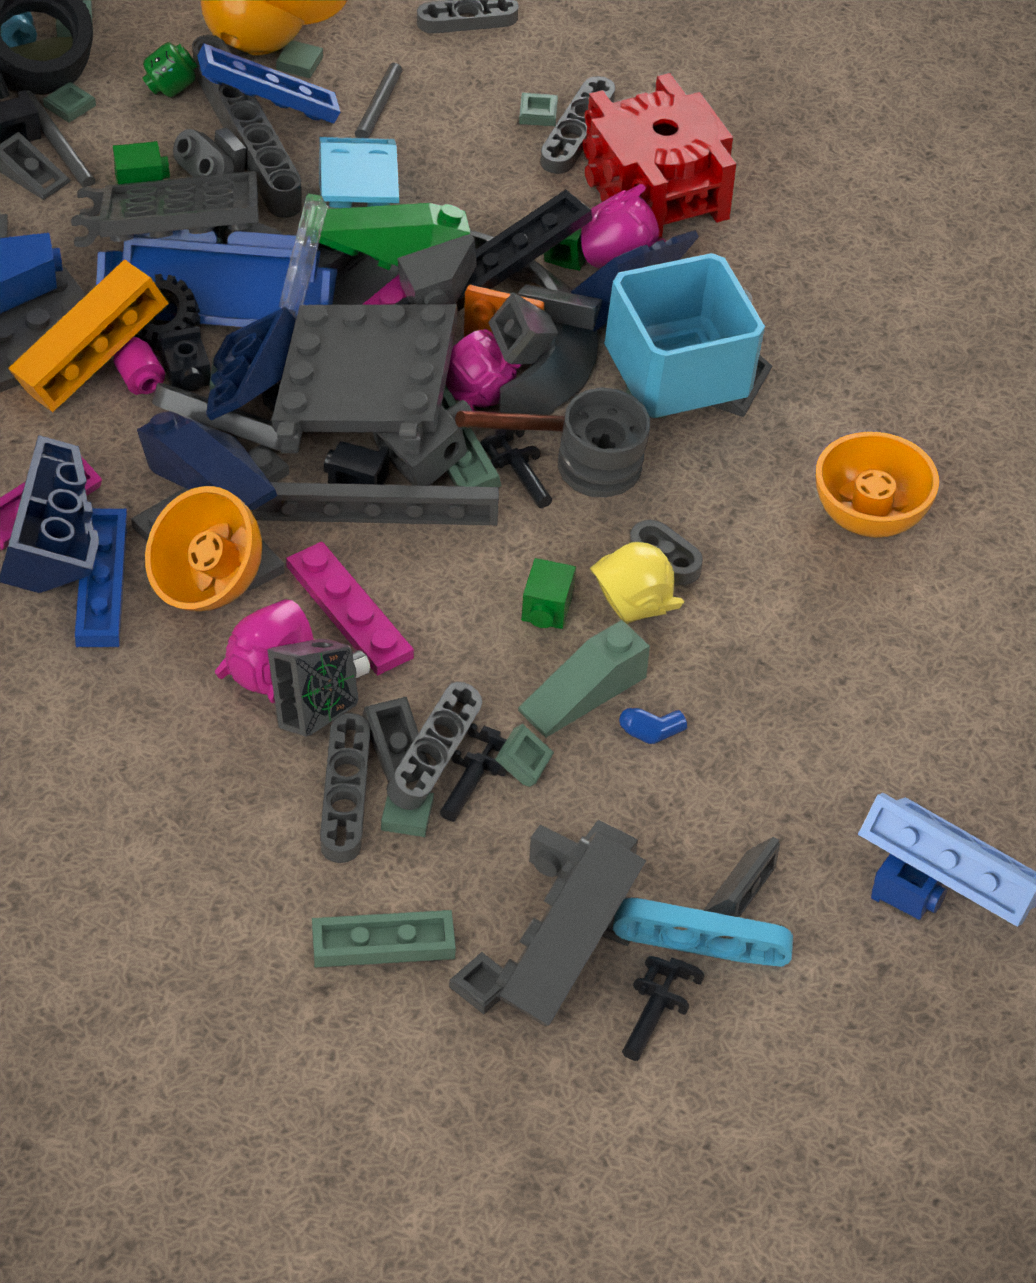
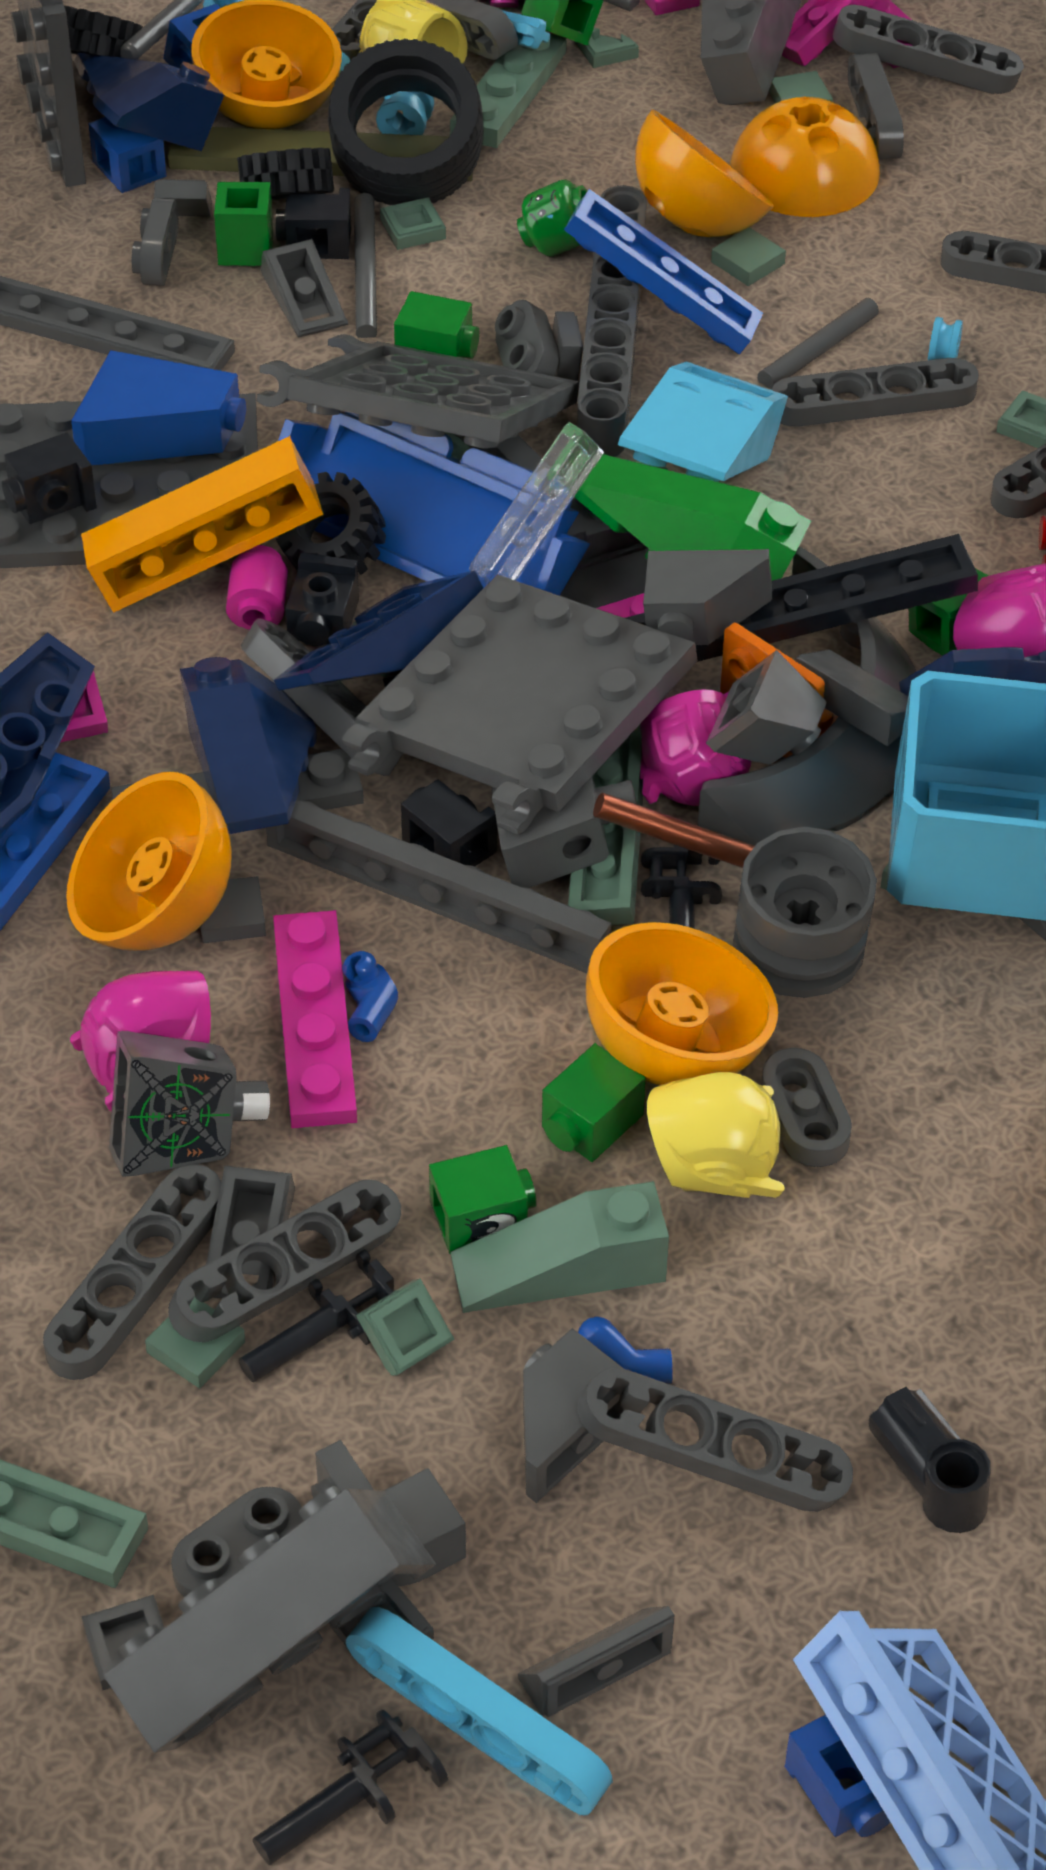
camera: 30 degrees right, 0 degrees up
(375, 581) = (372, 992): none -> blue arm
(458, 77) = (945, 339): none -> medium azure bush
(467, 104) = (872, 387): none -> dark grey beam
(508, 904) = (230, 1535): none -> dark grey plate
(519, 669) = (479, 1195): none -> green brick
(569, 518) = (677, 1002): none -> light orange piece
(643, 761) = (552, 1427): none -> dark grey slope
(736, 737) = (713, 1451): none -> dark grey beam
(866, 714) = (933, 1459): none -> black piece

